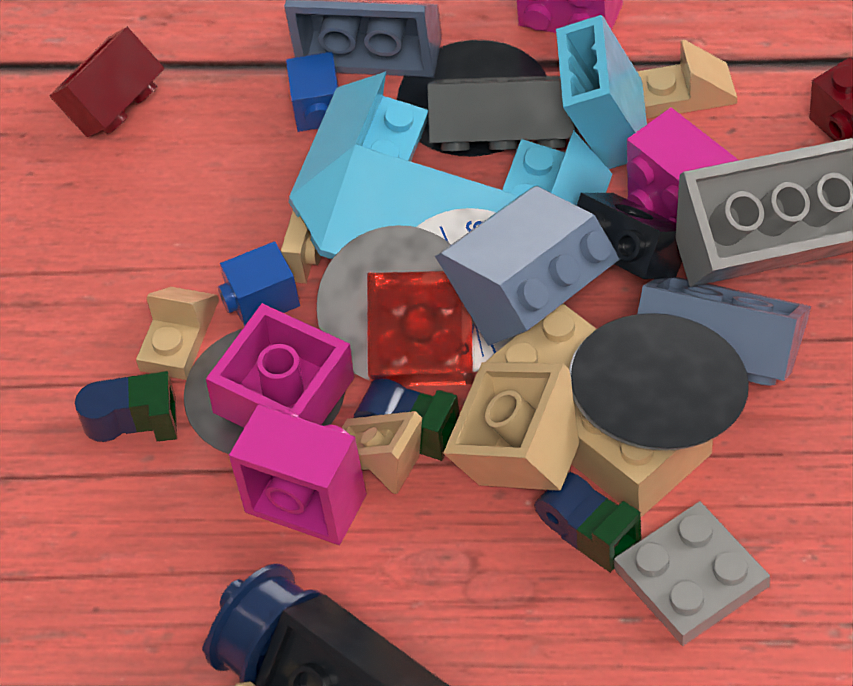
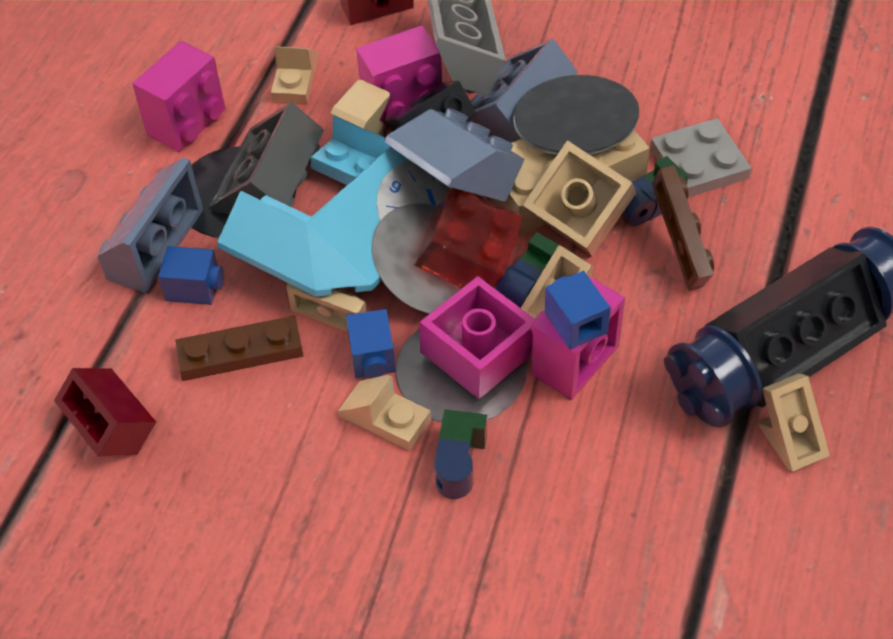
camera: 80 degrees left, 0 degrees up
(237, 174) = (238, 348): none -> reddish brown plate
(271, 429) = (577, 309): none -> blue brick
(512, 554) = (683, 227): none -> reddish brown plate
(589, 155) = (363, 107): none -> tan slope
(600, 88) = (307, 82): medium azure brick -> none

